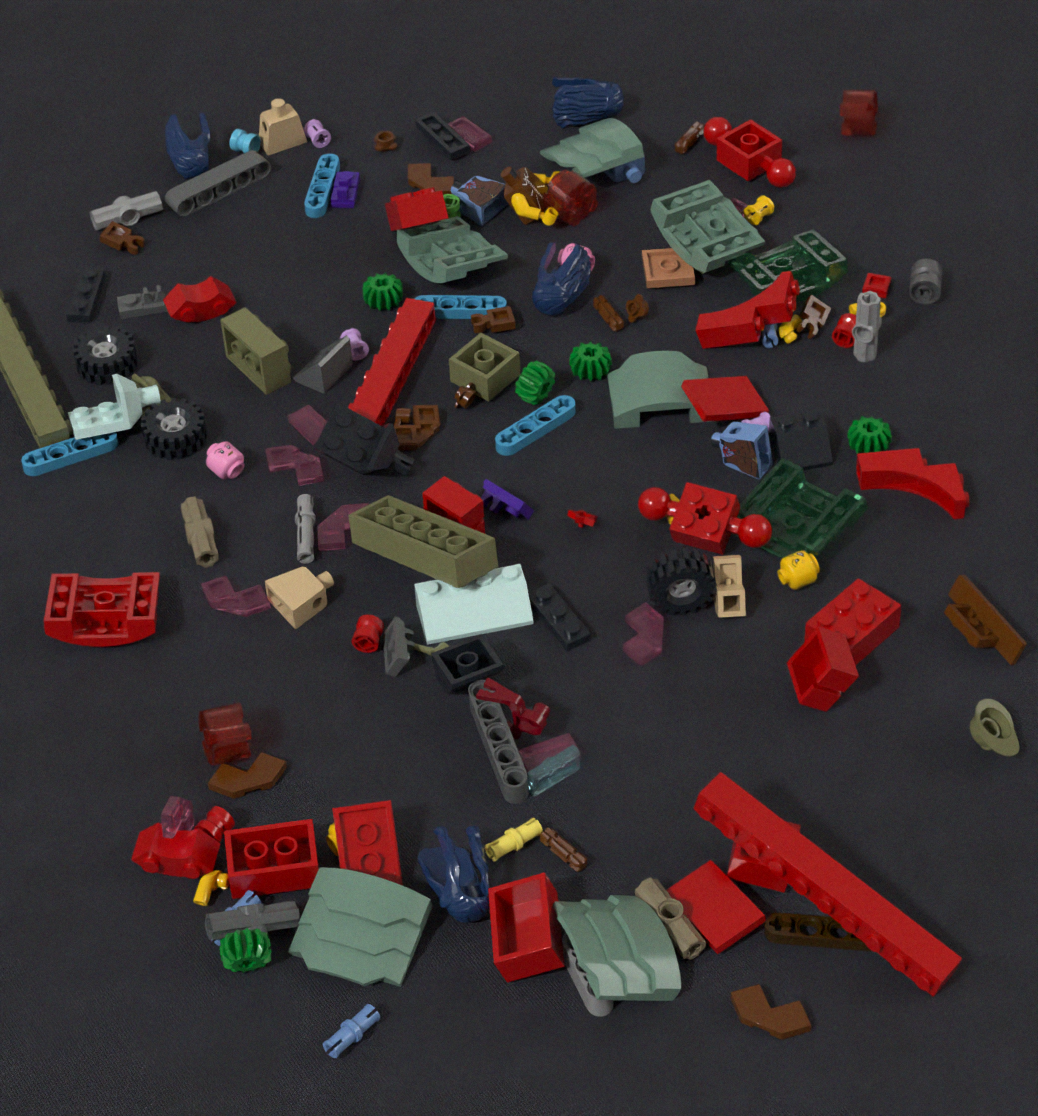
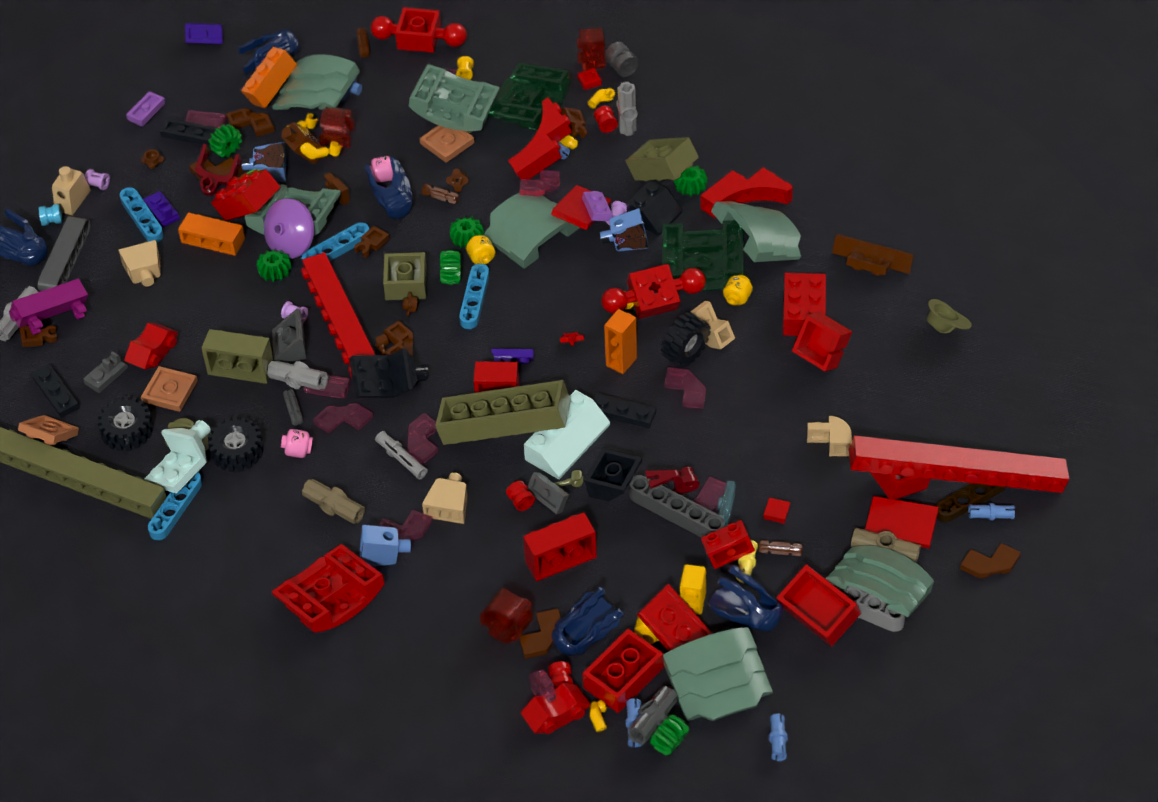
camera: 40 degrees left, 5 degrees up
(36, 321) = (48, 429): none -> nougat plate
(152, 214) = (49, 303): none -> magenta brick
(175, 347) = (169, 389): none -> nougat plate
(188, 595) = (381, 545): none -> medium blue torso
(261, 428) = (293, 407): none -> dark grey axle
(275, 225) = (142, 262): none -> tan torso
(288, 790) = (585, 623): none -> dark blue hair
(290, 399) = (297, 375): none -> light grey piece
(342, 701) = (560, 546): none -> red brick
(360, 233) = (211, 234): none -> orange brick
(410, 184) = (213, 179): none -> dark red piece
(417, 825) = (693, 587): none -> yellow brick
(422, 261) = (295, 226): none -> medium lavender dish
(427, 95) = (145, 108): none -> medium lavender plate
(459, 156) = (225, 140): none -> green gear
(505, 806) = (727, 544): none -> red brick
(509, 151) = (244, 117): none -> reddish brown tile
(514, 255) = (335, 184): none -> reddish brown plate
(550, 54) = (203, 33): none -> dark purple plate
(557, 119) = (269, 77): none -> orange brick
(583, 384) = (480, 250): none -> yellow head
(601, 810) = (776, 510): none -> red tile
(611, 543) = (620, 341): none -> orange brick
(723, 358) = (548, 182): none -> clear pink tile
(737, 404) = (597, 206): none -> medium lavender plate
(740, 768) = (834, 432): none -> tan brick
(825, 961) = (991, 511): none -> medium blue pin
(851, 395) = (662, 159): none -> olive brick
(883, 525) = (770, 231): none -> sand green slope
(900, 252) = (591, 48): none -> clear red brick

